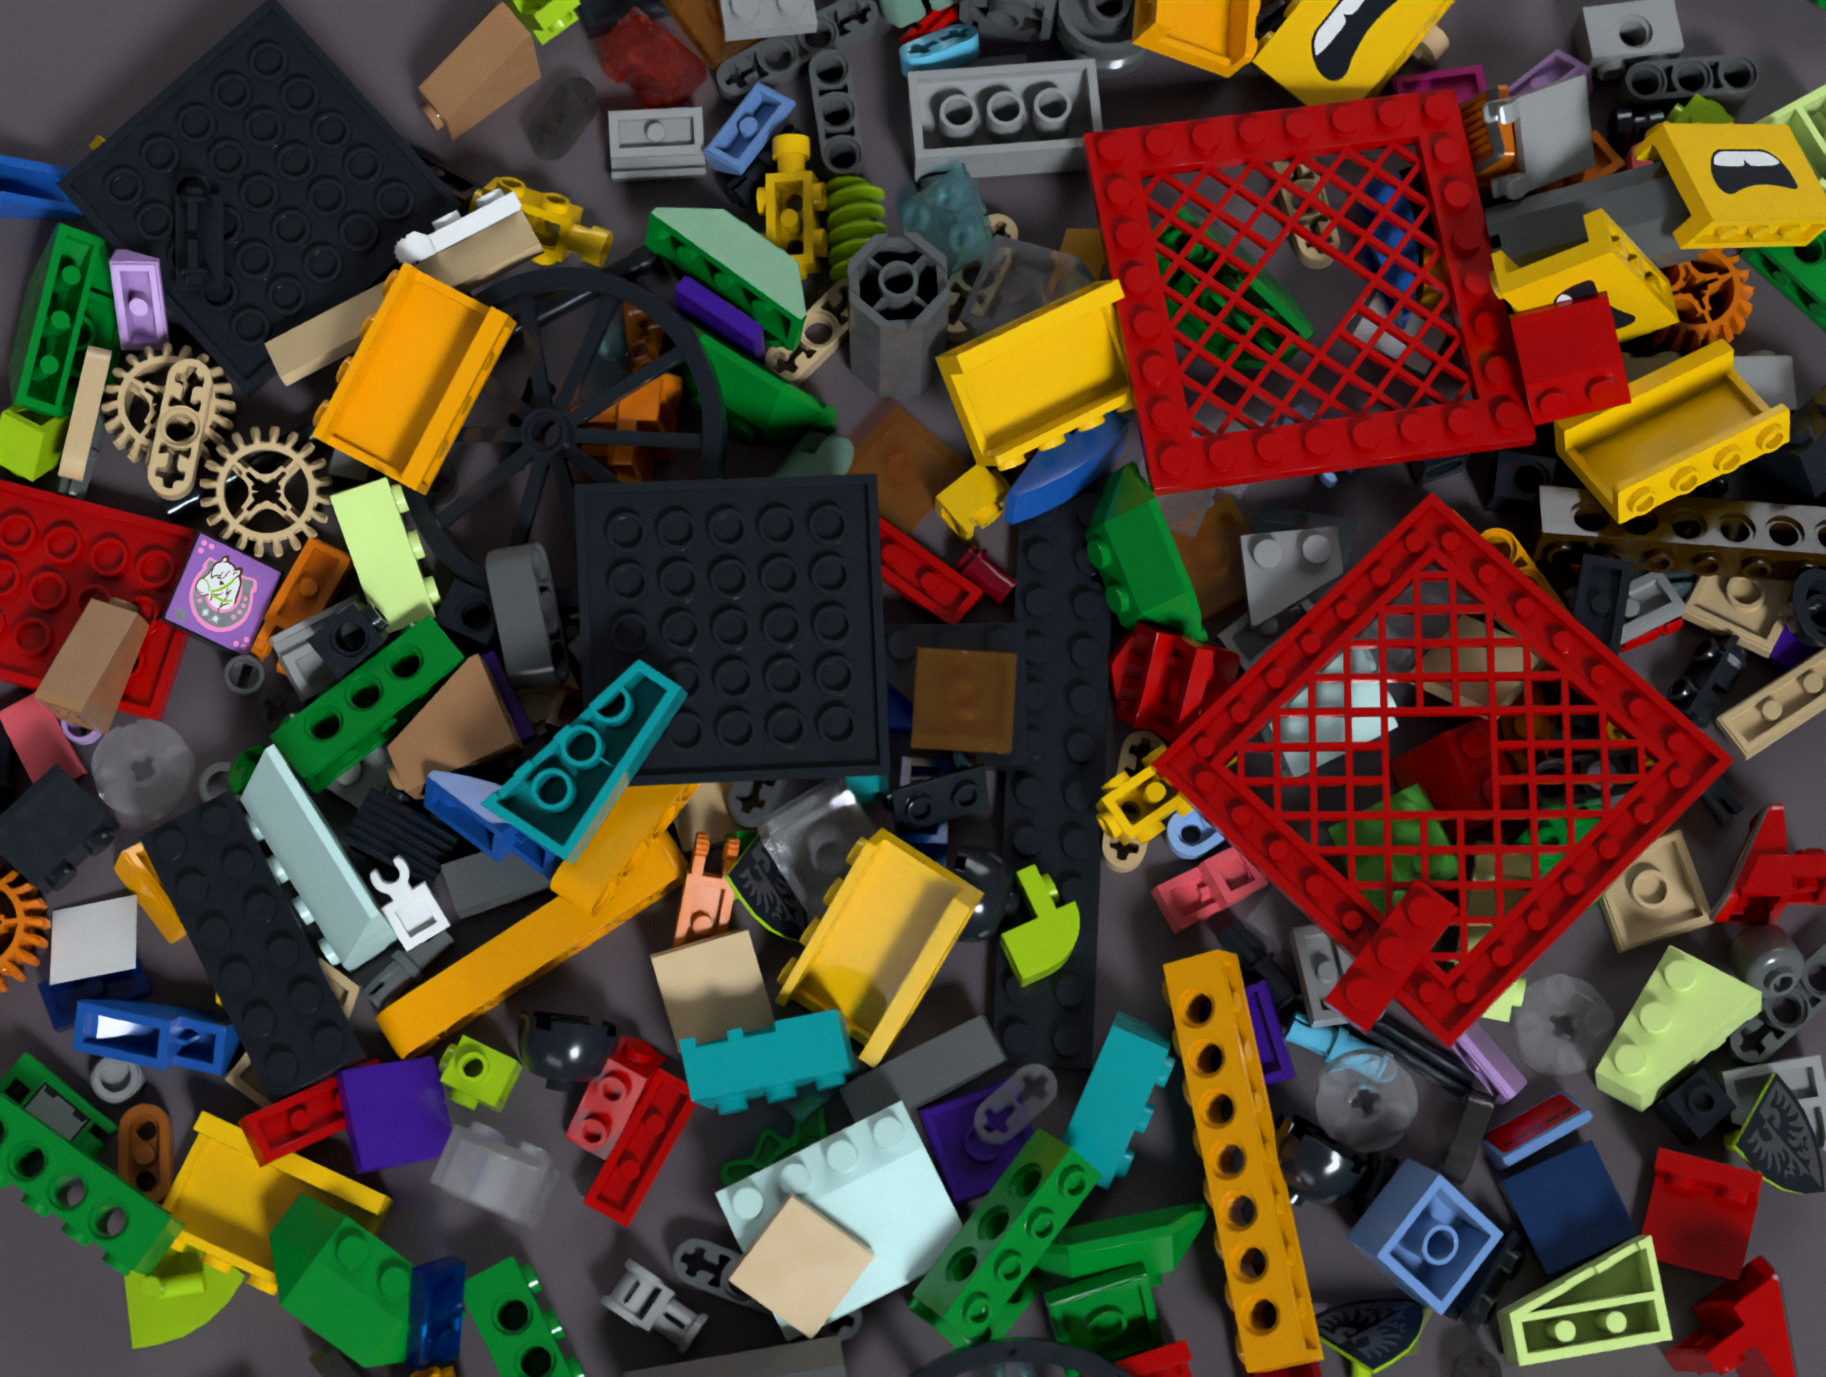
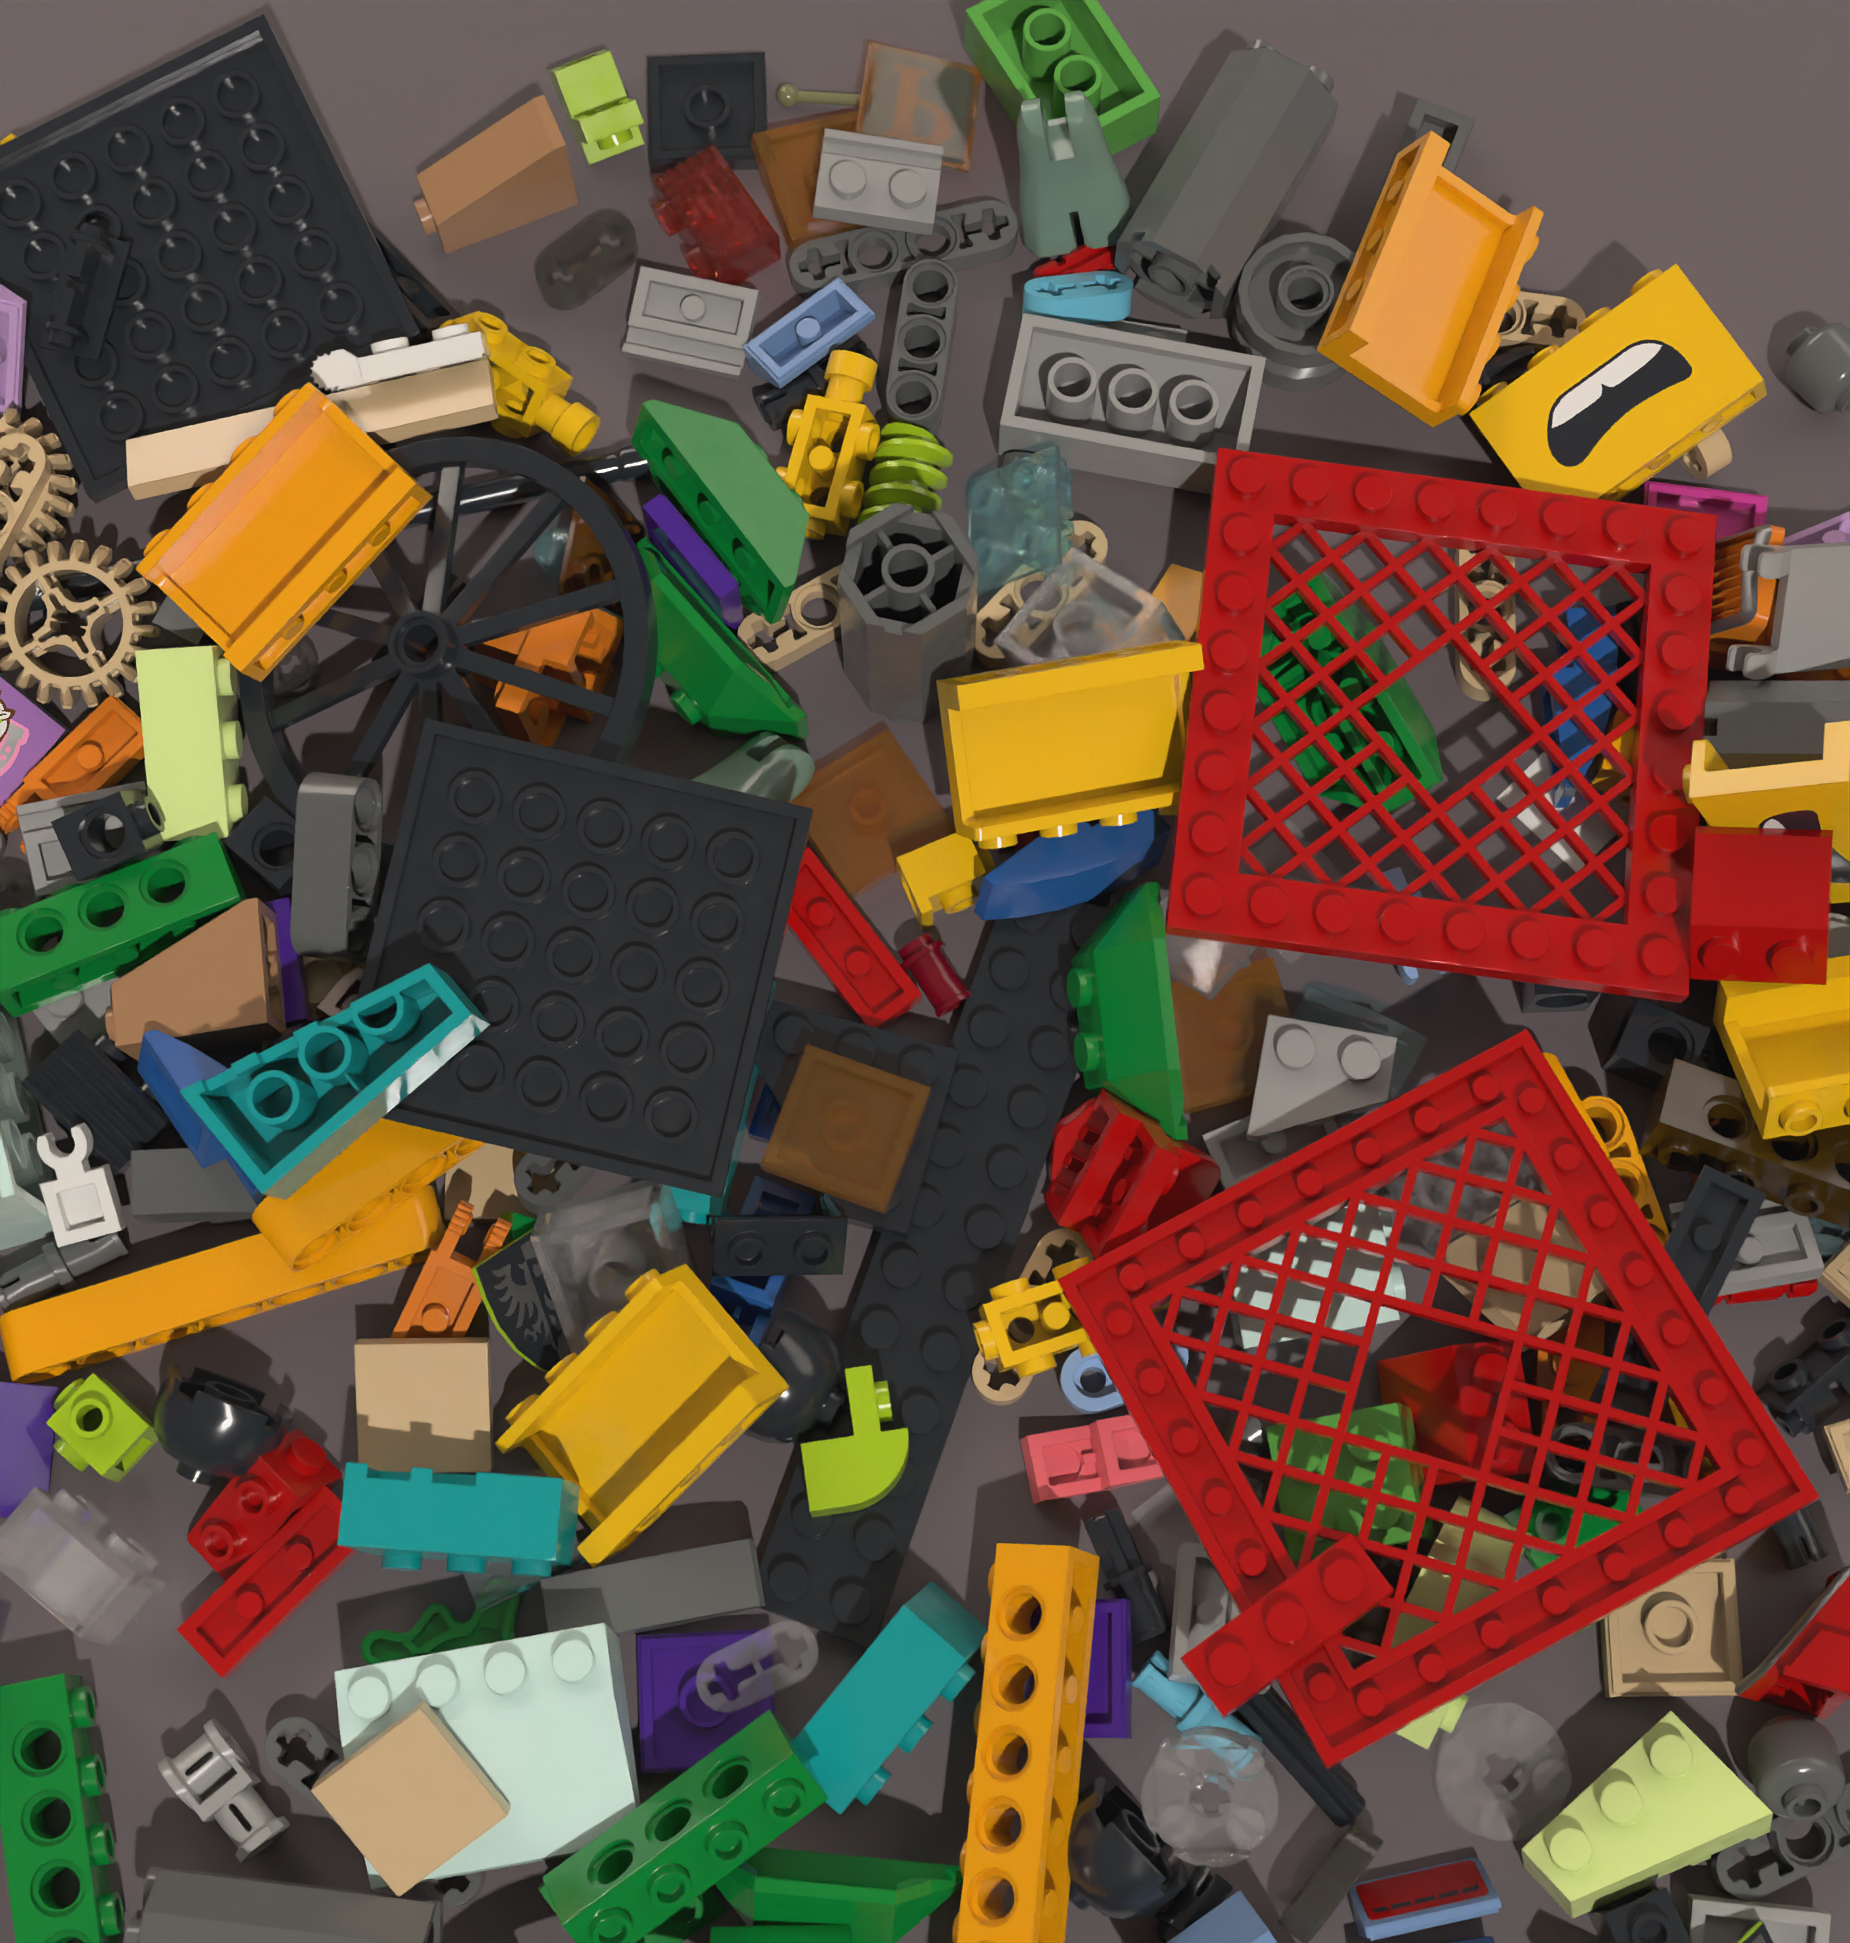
camera: 20 degrees right, 0 degrees up
(1489, 1064) = (1391, 1795): lavender slope -> none

